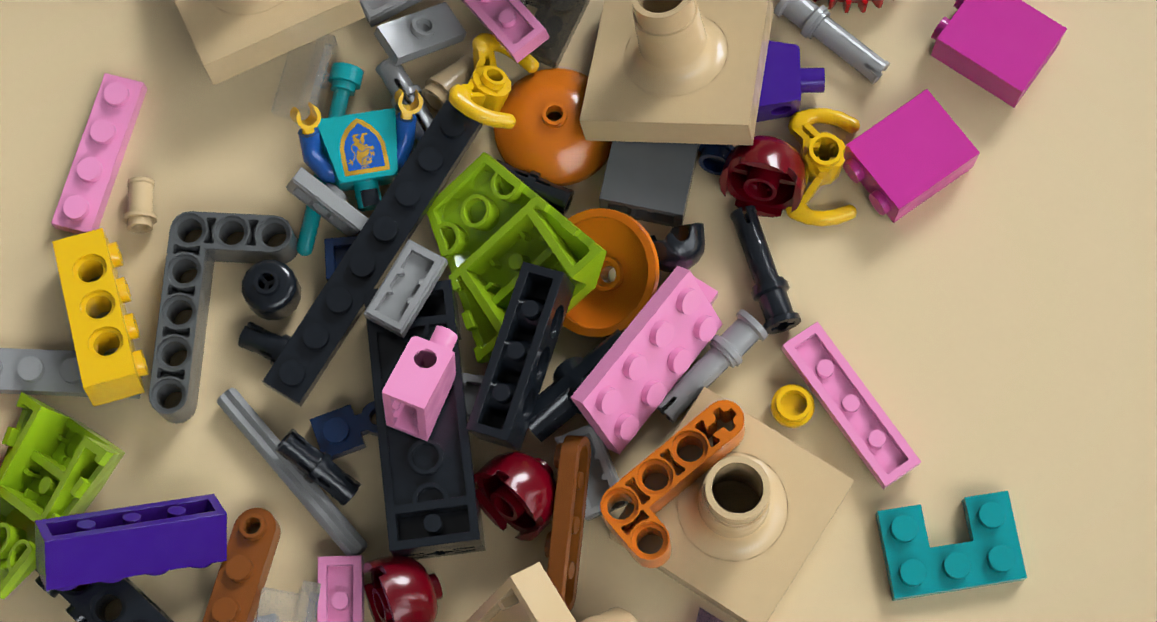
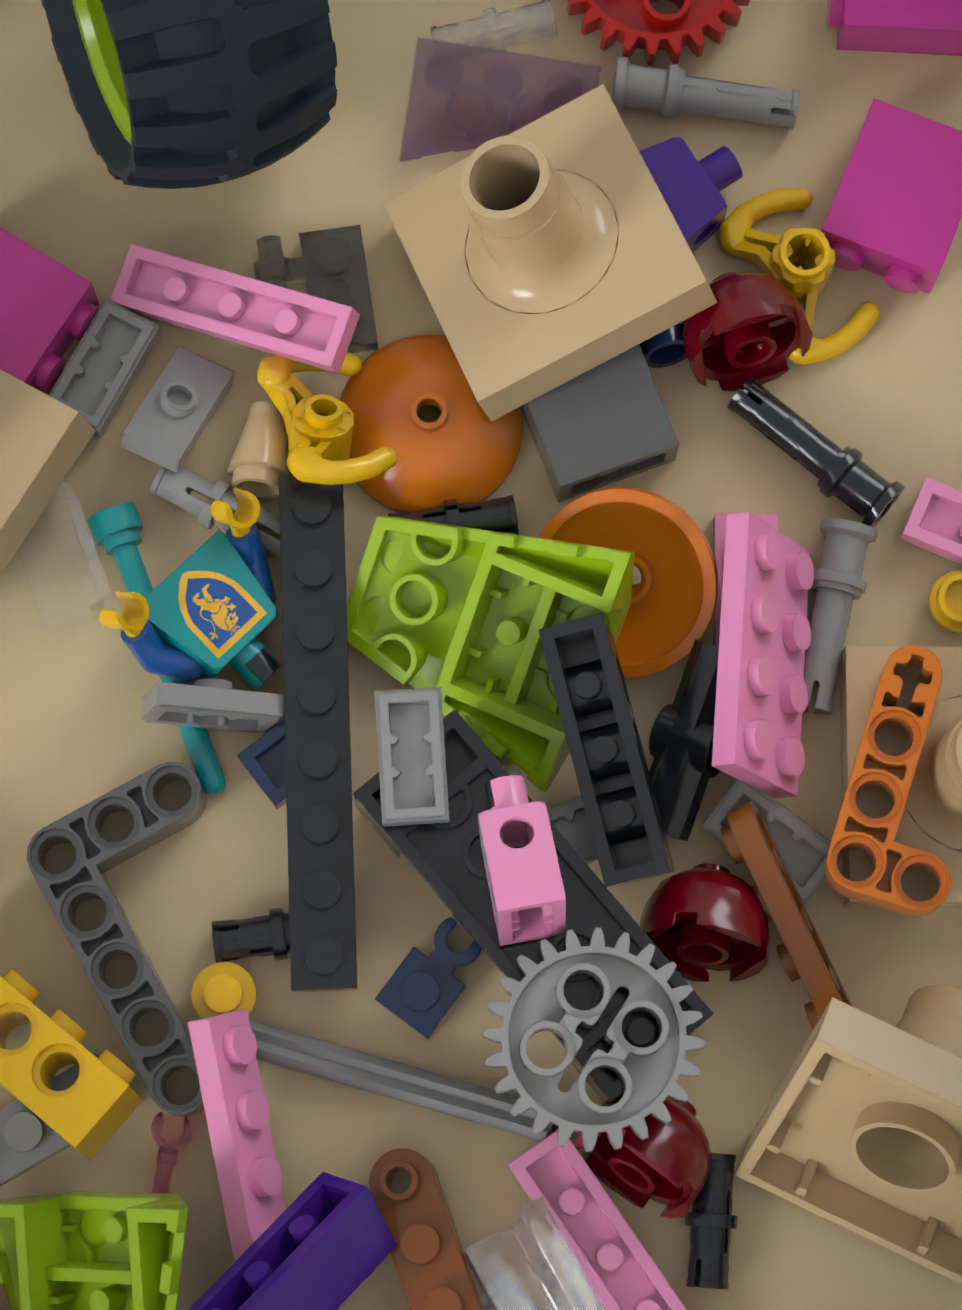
camera: 40 degrees left, 5 degrees up
(143, 431) = (167, 1152): none -> clear pink hand
(186, 435) = (238, 1125): none -> bright pink plate
(230, 365) = (223, 989): none -> yellow plate
(271, 290) = (225, 884): black head -> none
(318, 467) = (429, 1052): black pin -> none
(414, 544) = (646, 1073): none -> light grey gear
(681, 247) = (700, 482): black hair -> none

